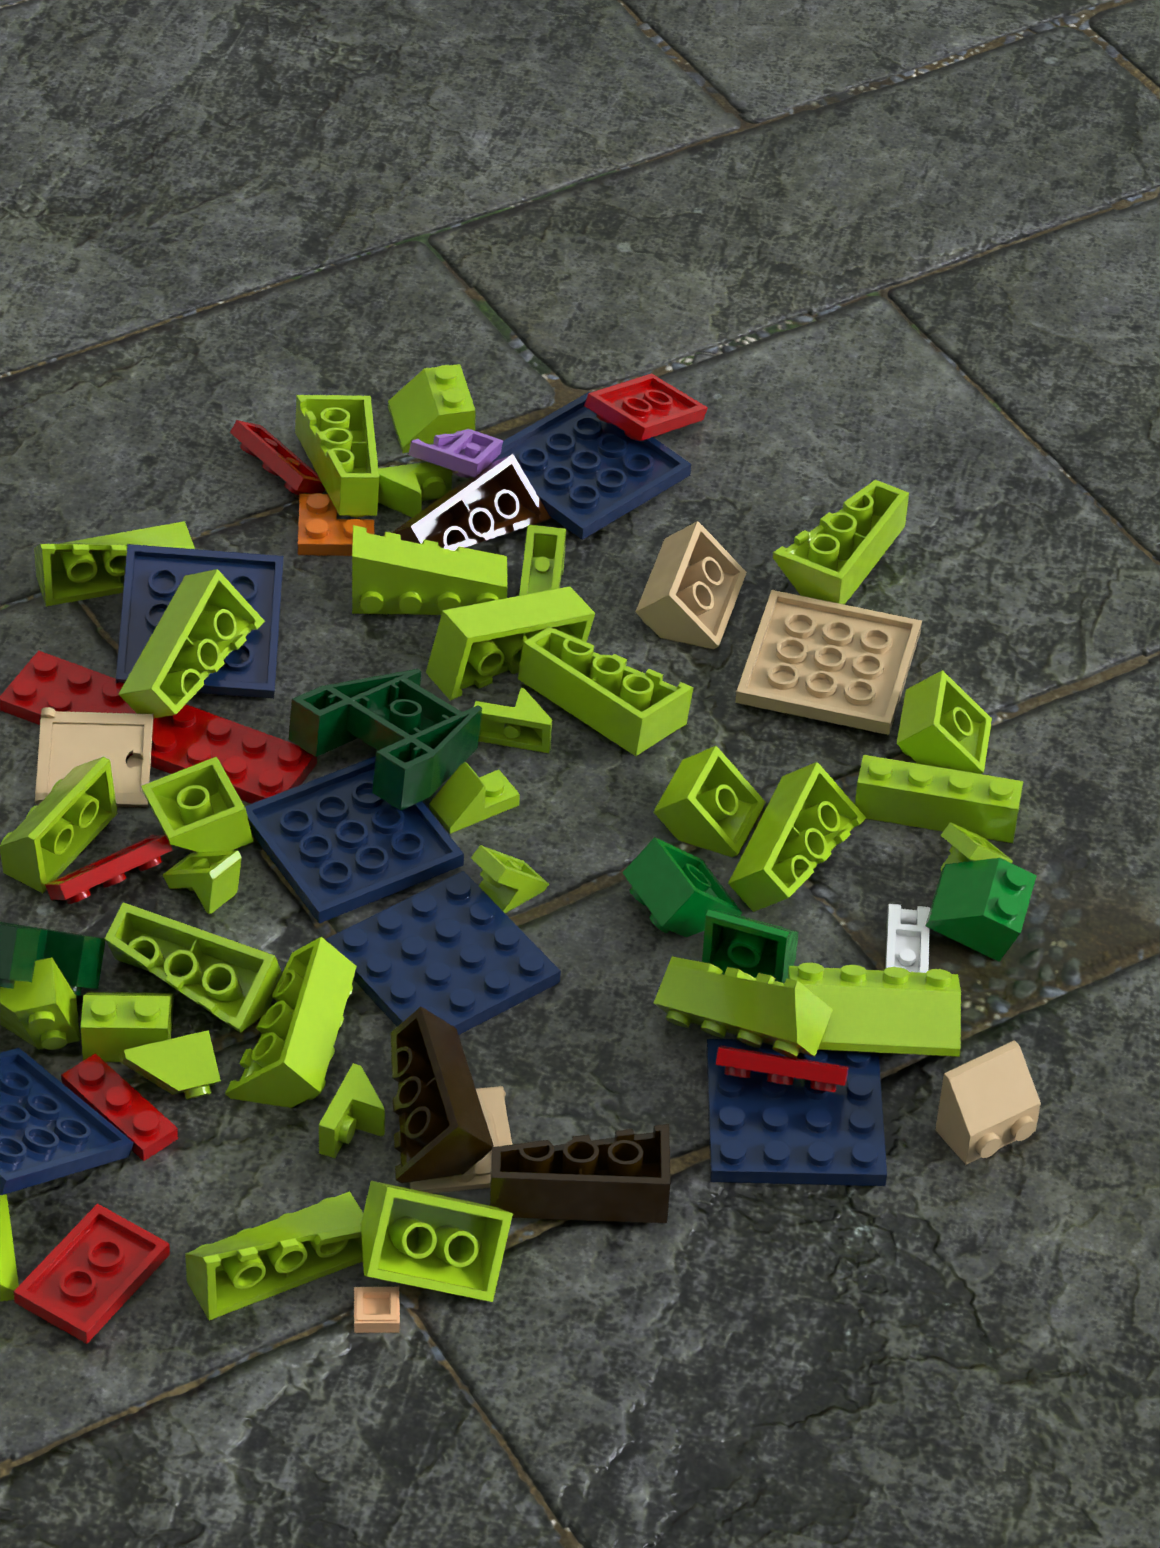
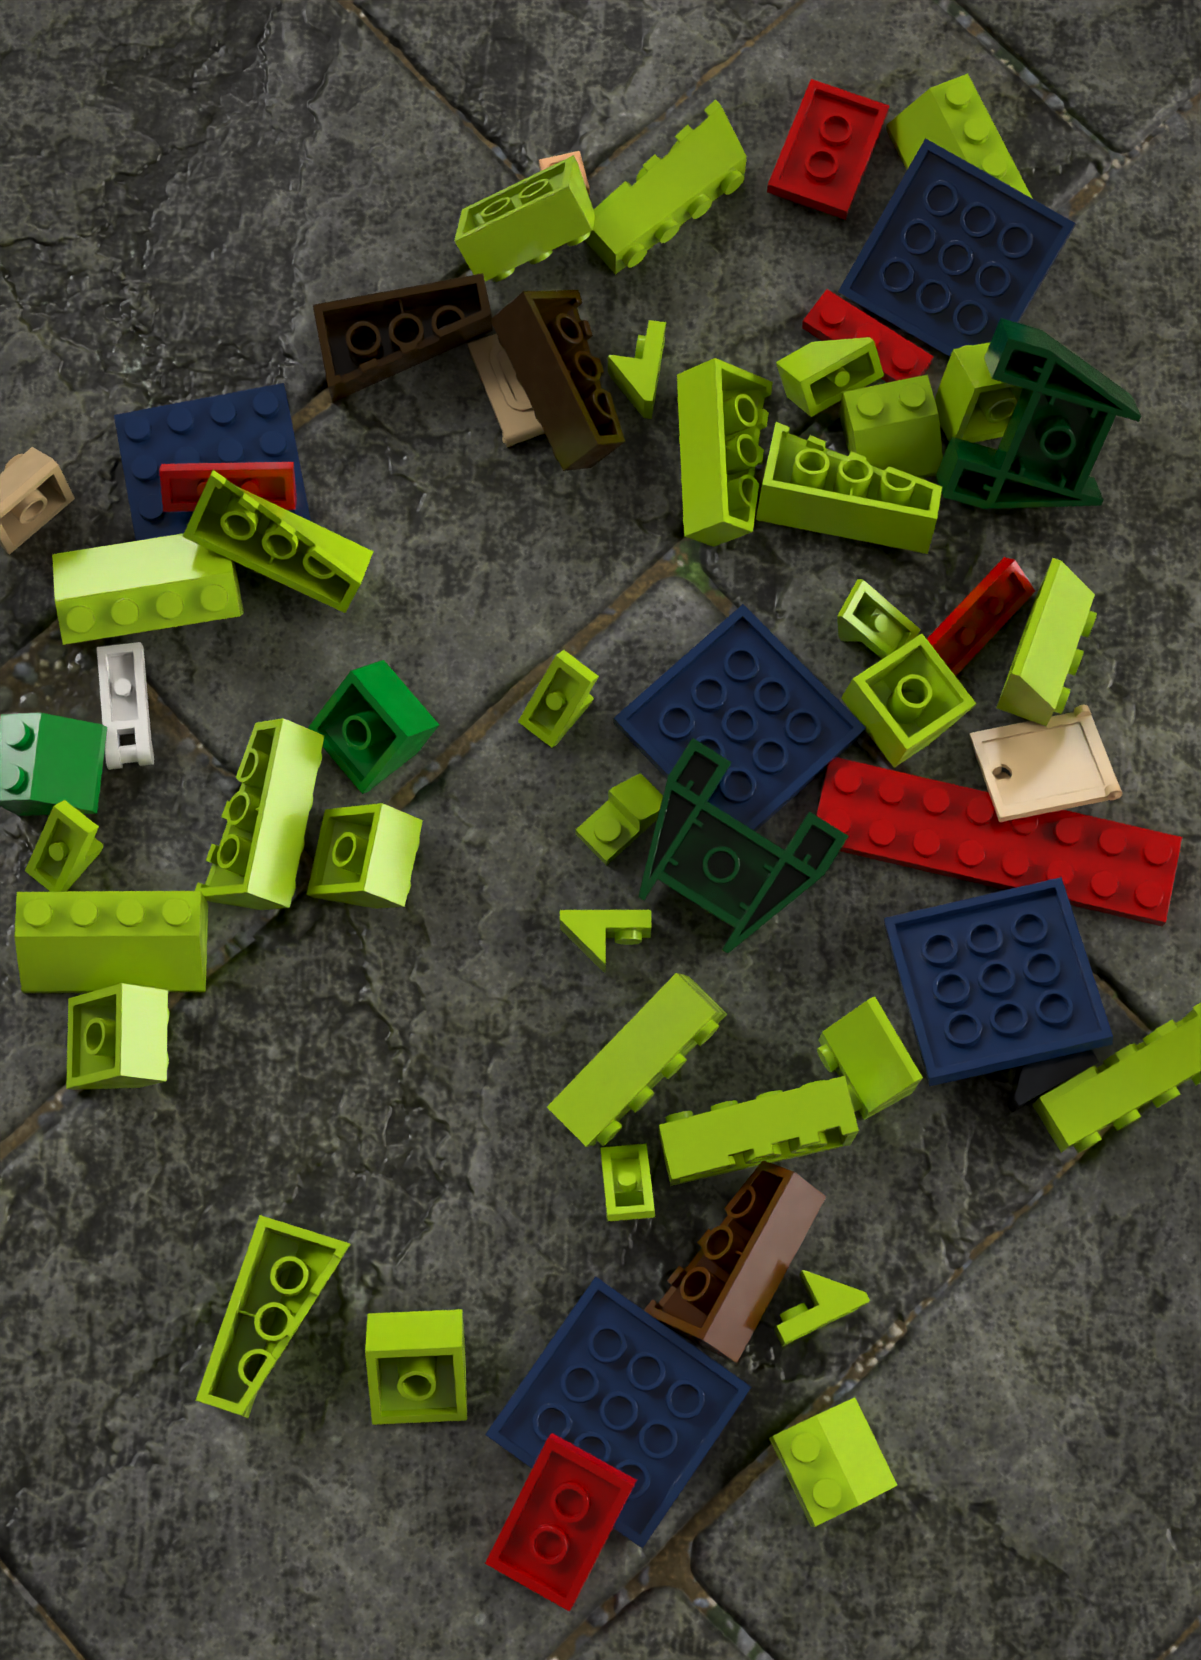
camera: 170 degrees right, 30 degrees up
(189, 644) = (991, 905): lime wedge -> none
(277, 458) = (998, 1321): red plate -> none
(321, 531) = (907, 1210): orange plate -> none
(322, 602) = (870, 1057): none -> lime slope
(342, 449) = (921, 1337): lime wedge -> none
(445, 954) = (604, 588): dark blue plate -> none
(463, 452) = (771, 1349): medium lavender wing -> none
(603, 691) = (500, 987): lime wedge -> none
(691, 589) = (445, 1203): tan slope -> none
(734, 510) = (416, 1366): none -> lime slope
(748, 945) = (286, 650): green slope -> none
(829, 662) = (263, 1125): tan plate -> none

